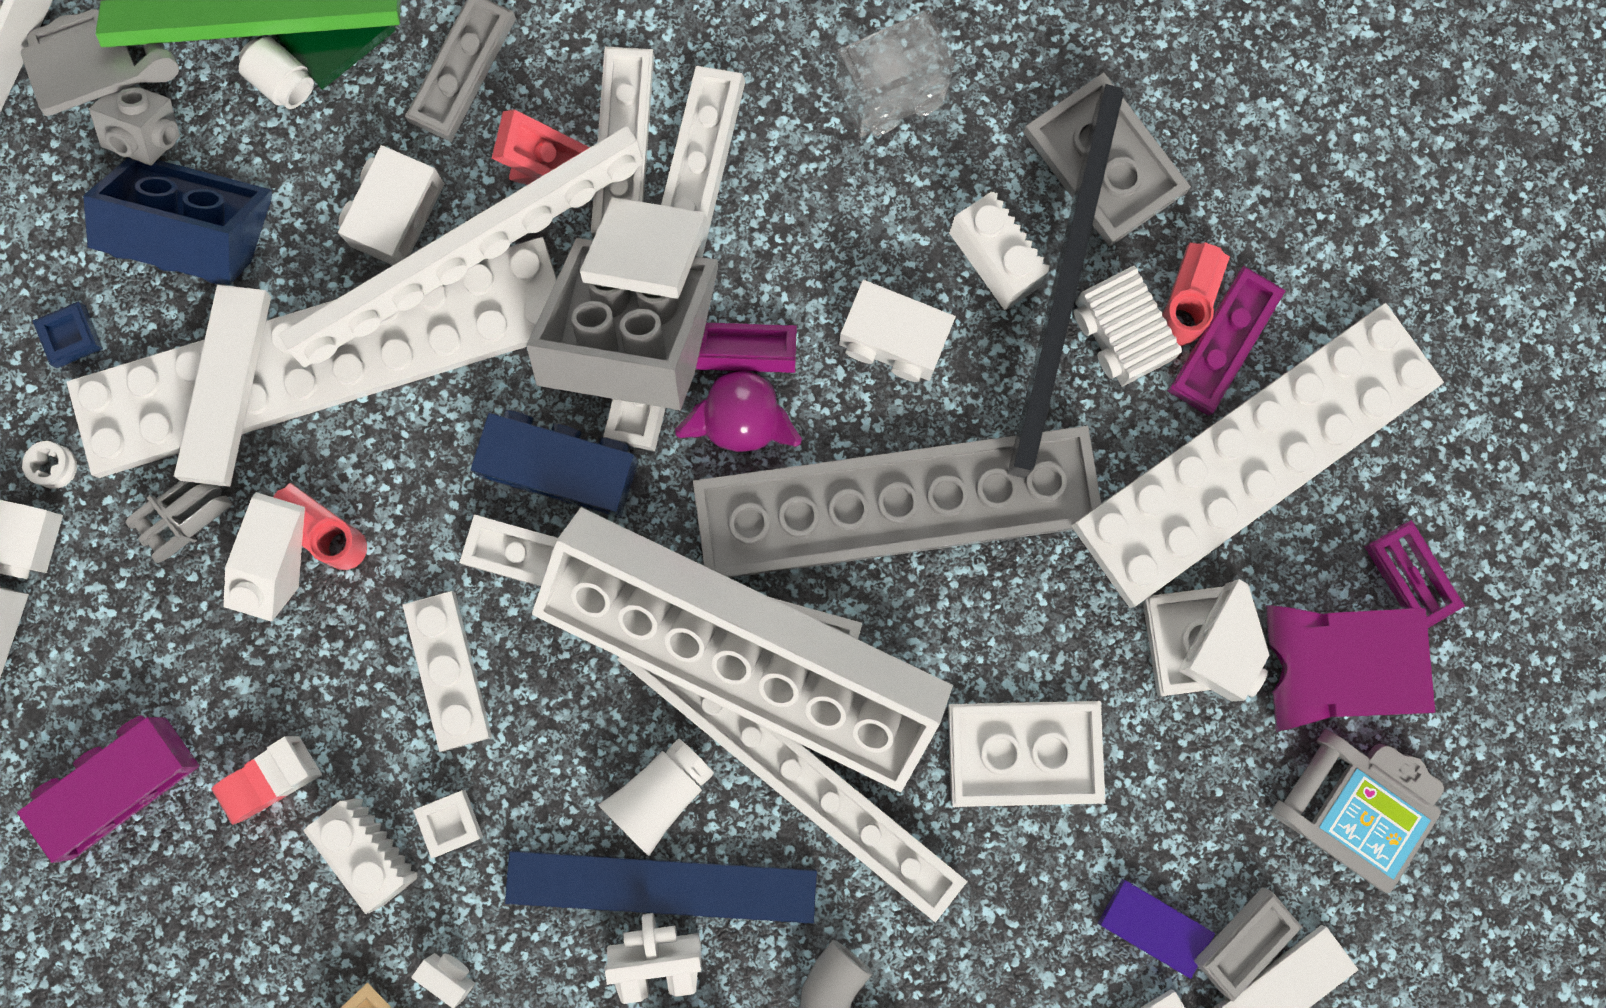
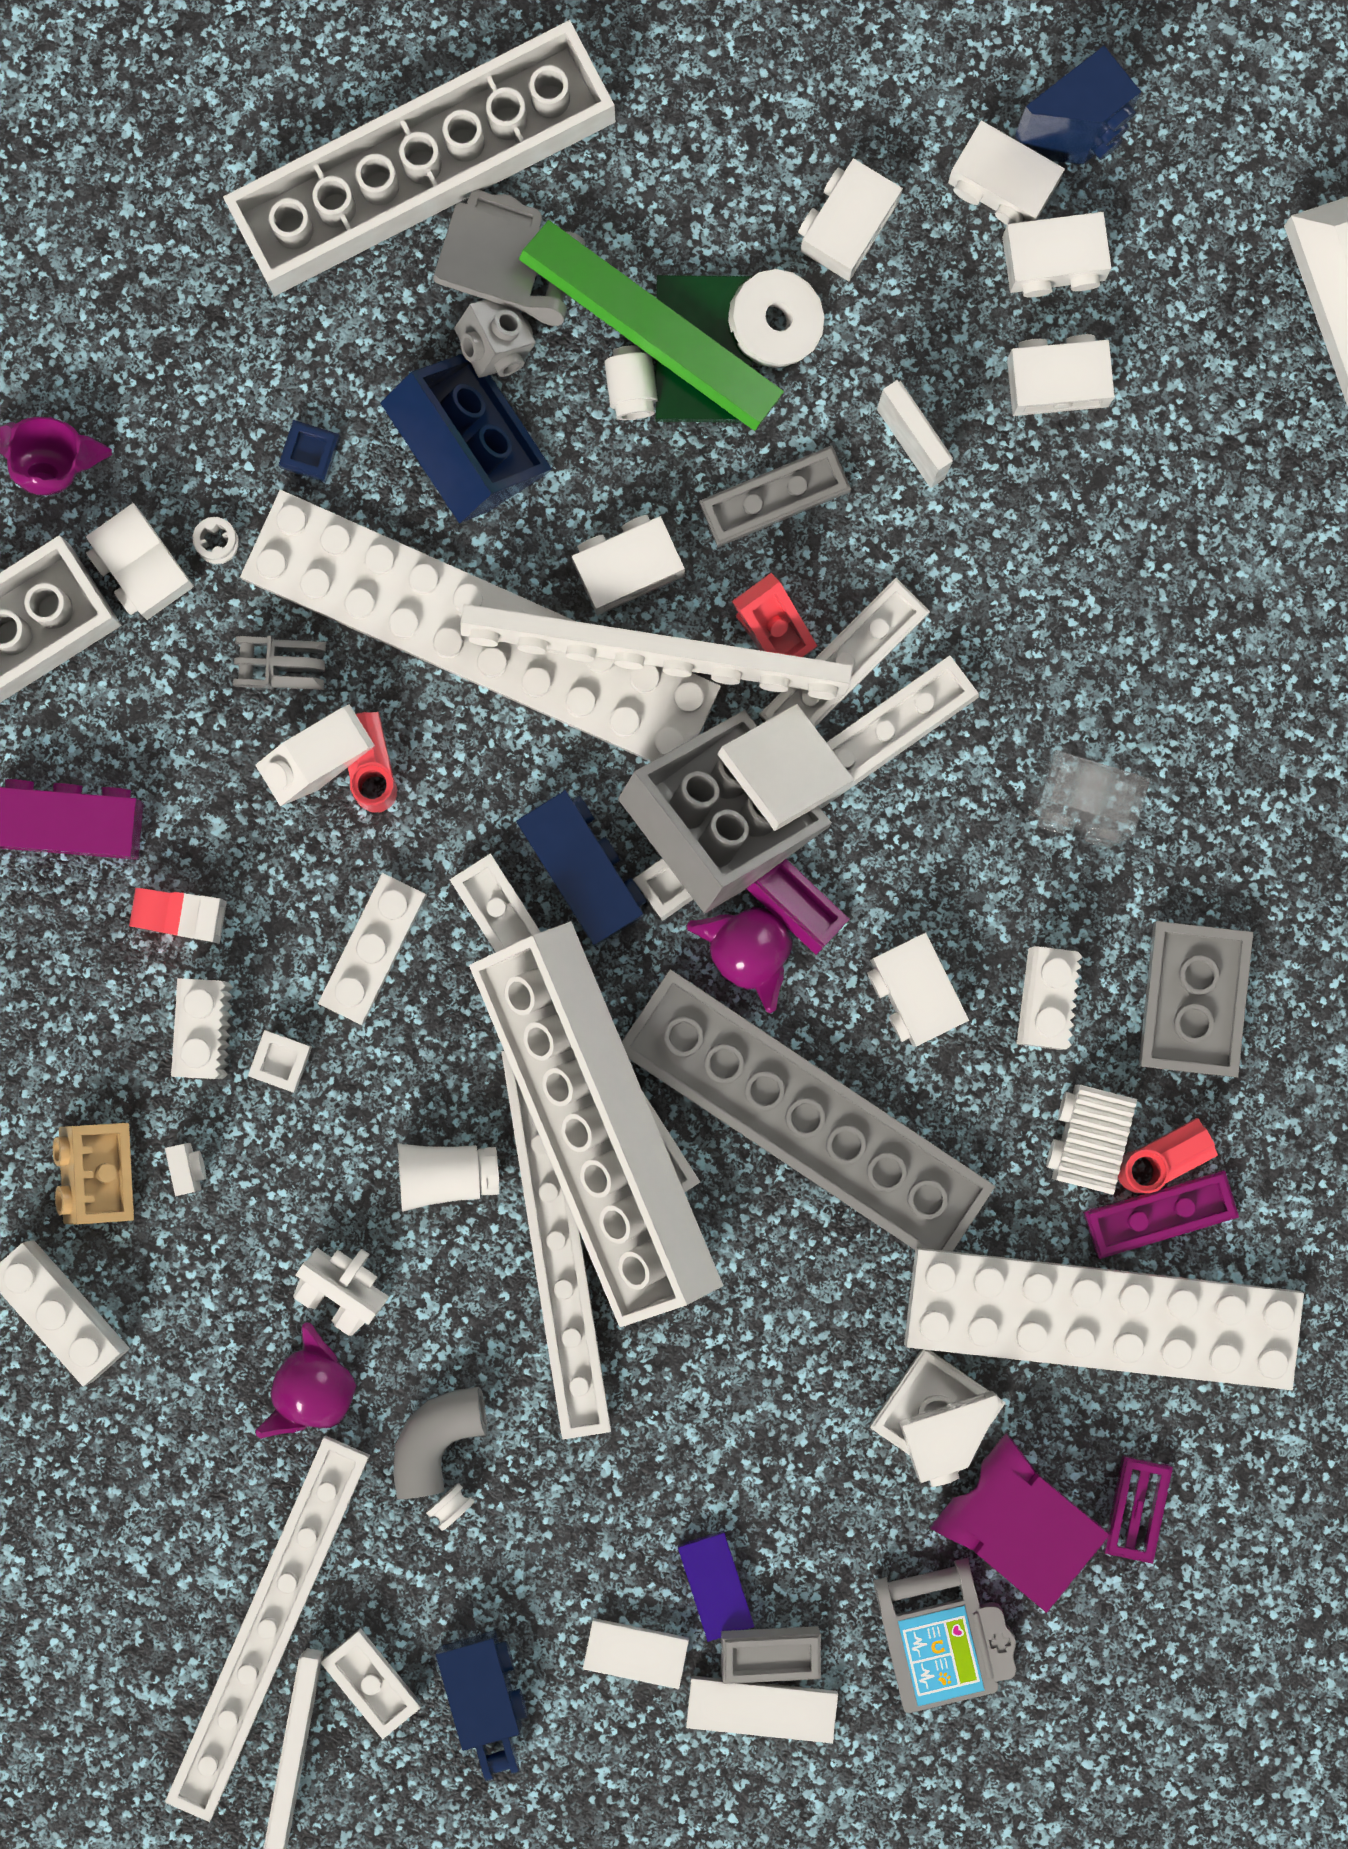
camera: 45 degrees right, 5 degrees up
(223, 386) = (392, 598): white tile -> none
(661, 886) = (391, 1240): dark blue tile -> none
(1026, 753) = (735, 1380): white tile -> none
(1065, 282) = (1074, 1066): black tile -> none

